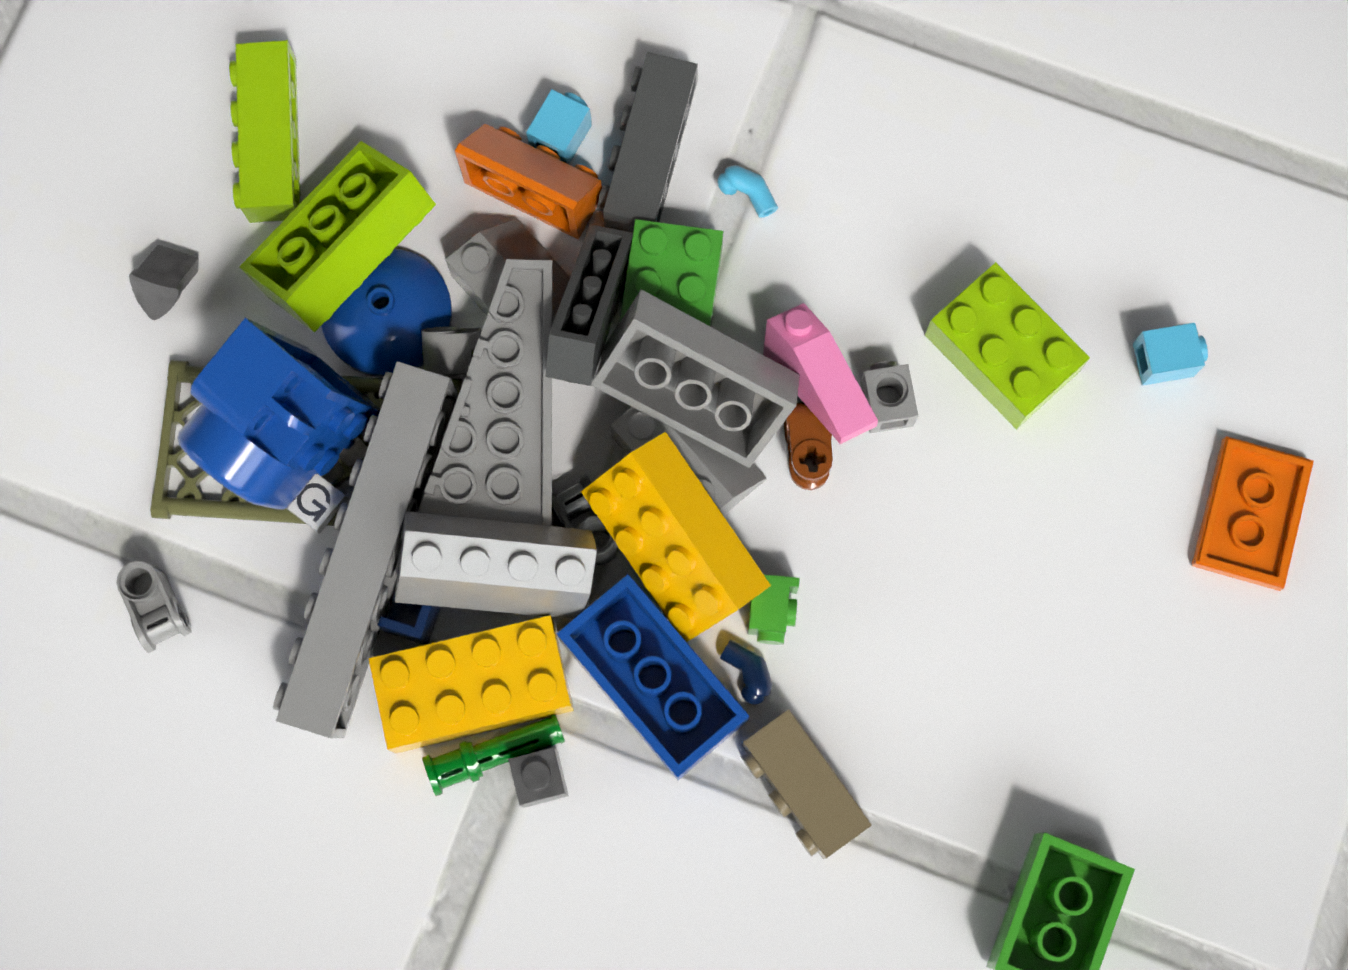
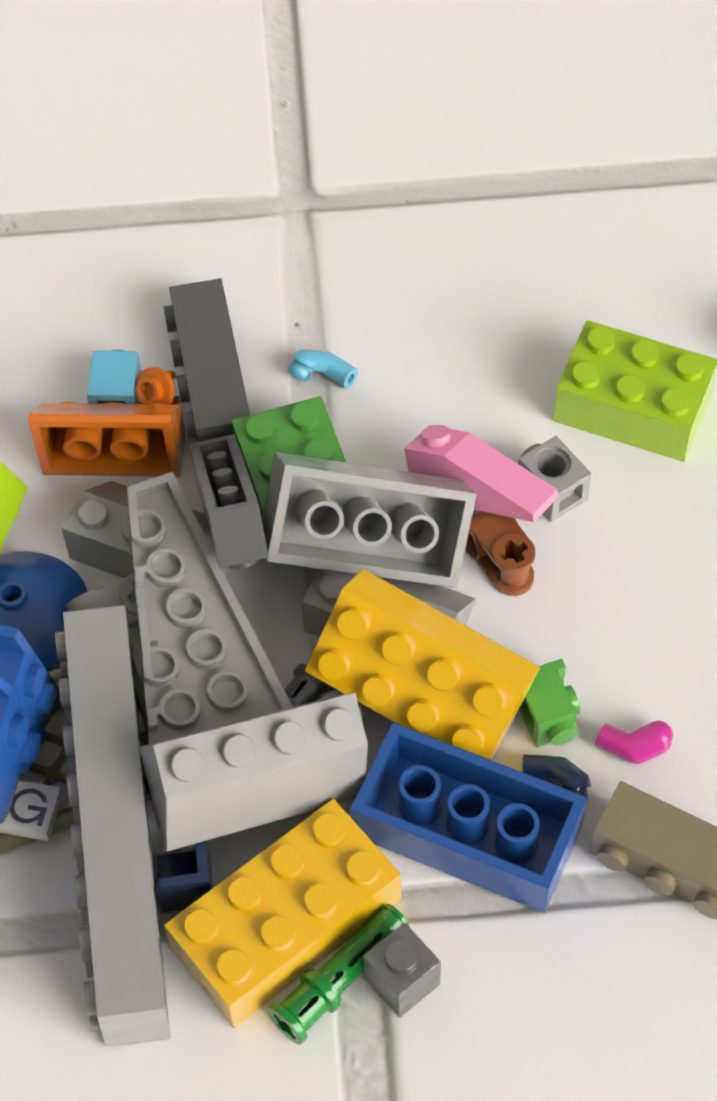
camera: 25 degrees left, 20 degrees down
(590, 149) = (156, 386): none -> orange plate
(829, 677) = (638, 745): none -> dark pink arm

